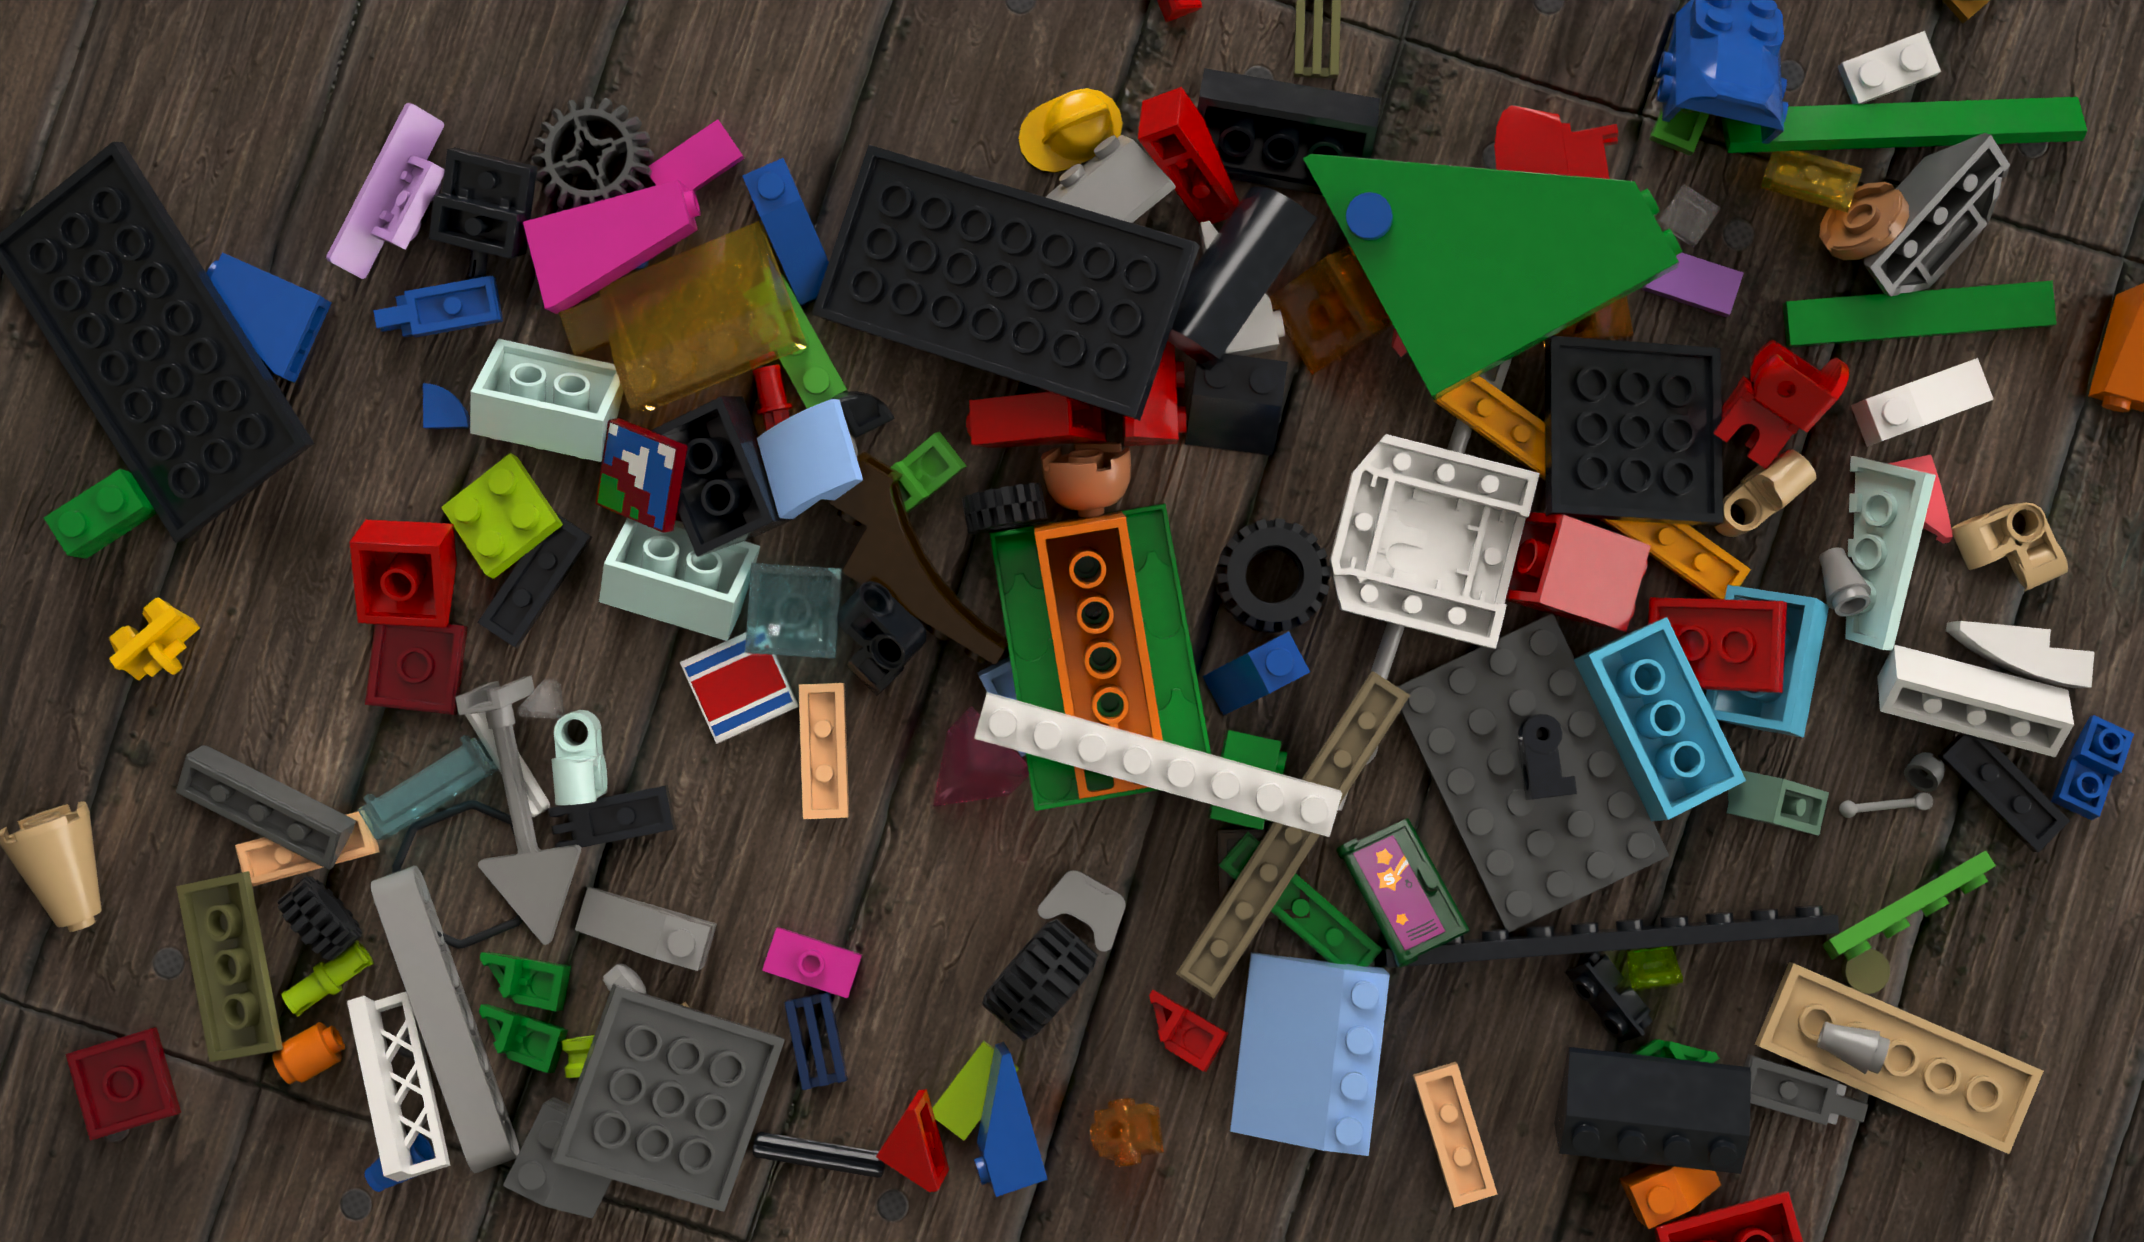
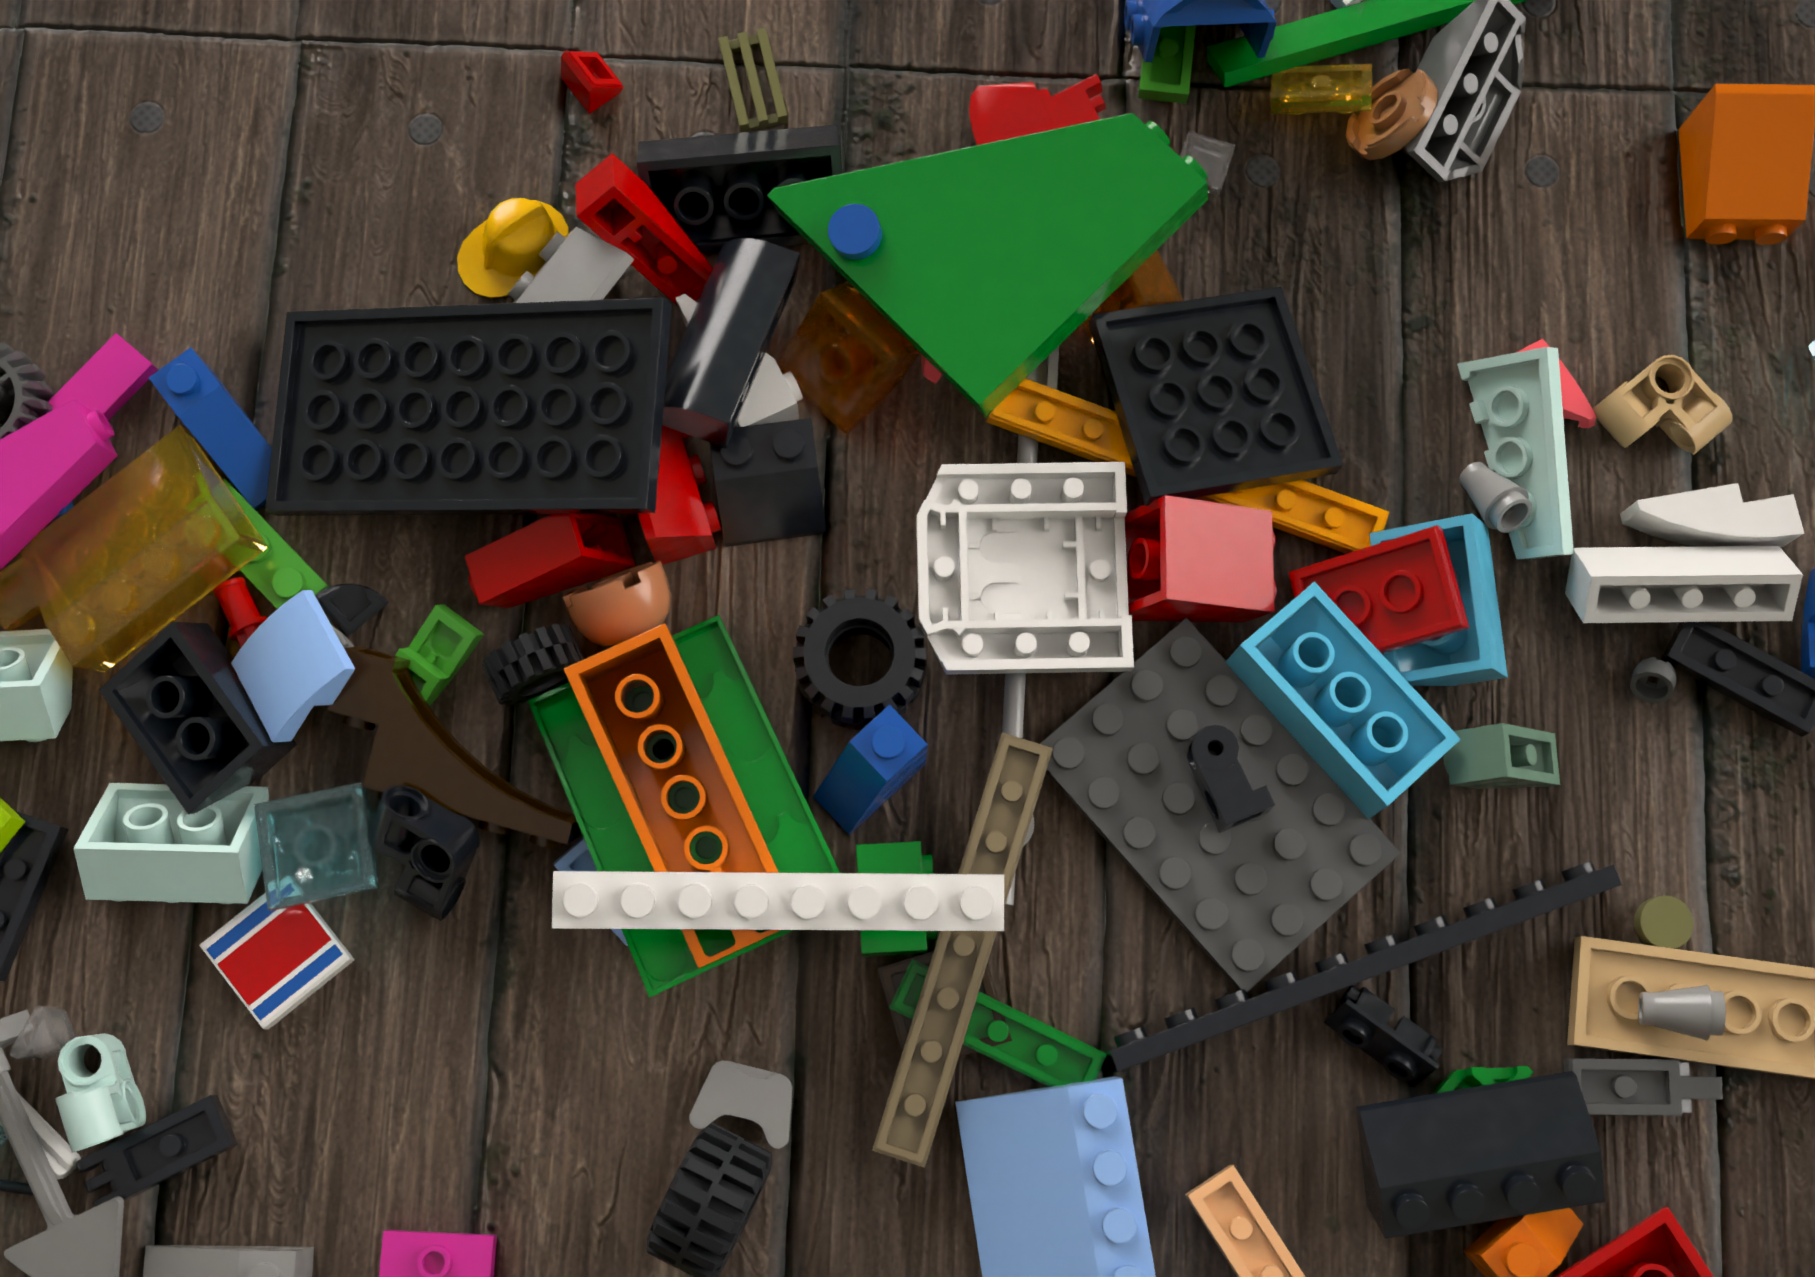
camera: 20 degrees left, 10 degrees down
(641, 475) = (104, 739): tile -> none
(823, 751) = (392, 1002): light nougat plate -> none
(975, 767) = (577, 971): clear pink slope -> none
(1186, 1032) = (905, 1219): red slope -> none
(1393, 879) = (1095, 968): door -> none
(1654, 968) = (1425, 989): clear neon green slope -> none
(1699, 285) = (1232, 230): medium lavender tile -> none
(1766, 491) = (1380, 420): tan piece -> none
(1784, 398) = (1366, 322): red piece -> none
(1919, 314) = (1480, 199): green tile -> none
(1921, 801) = (1659, 715): light grey hinge -> none
(1922, 402) = (1511, 288): white slope -> none
(1926, 898) = (1675, 851): bright green plate -> none

